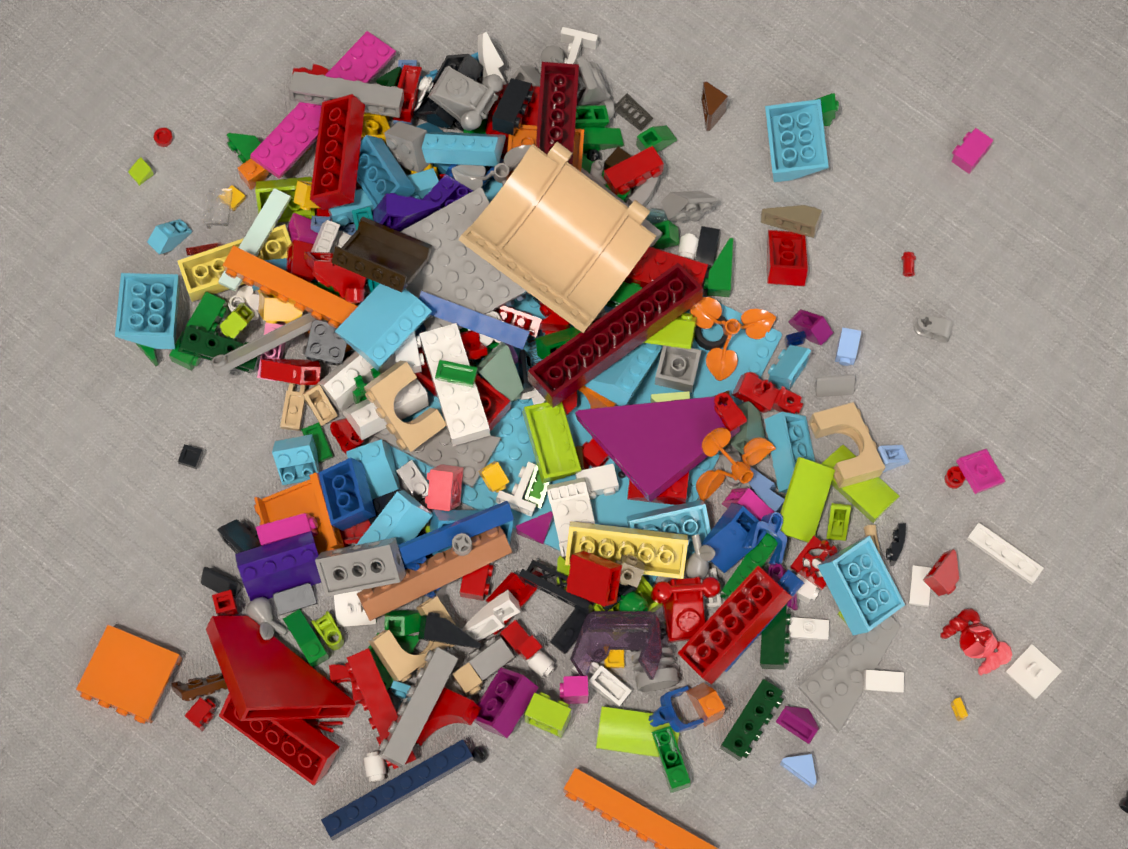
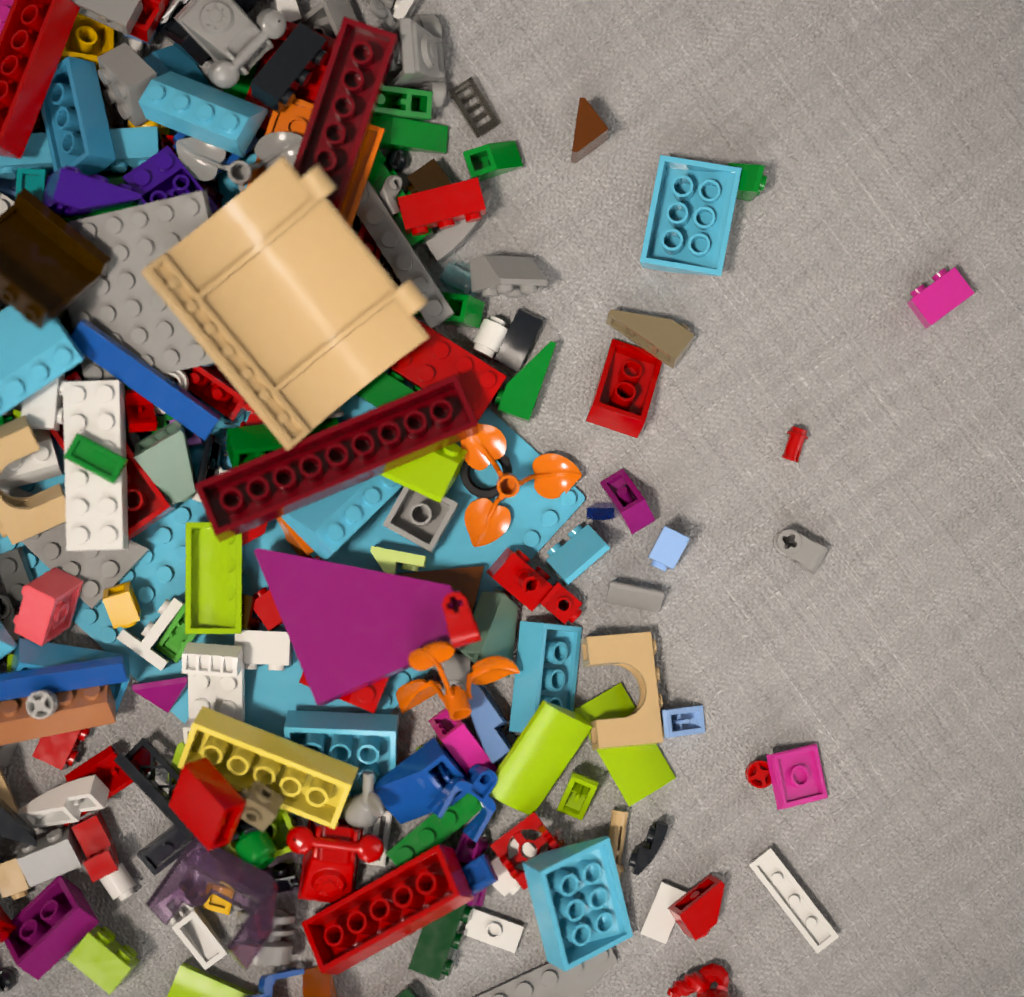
camera: 20 degrees right, 15 degrees up
(574, 689) = (148, 935): dark pink brick -> none

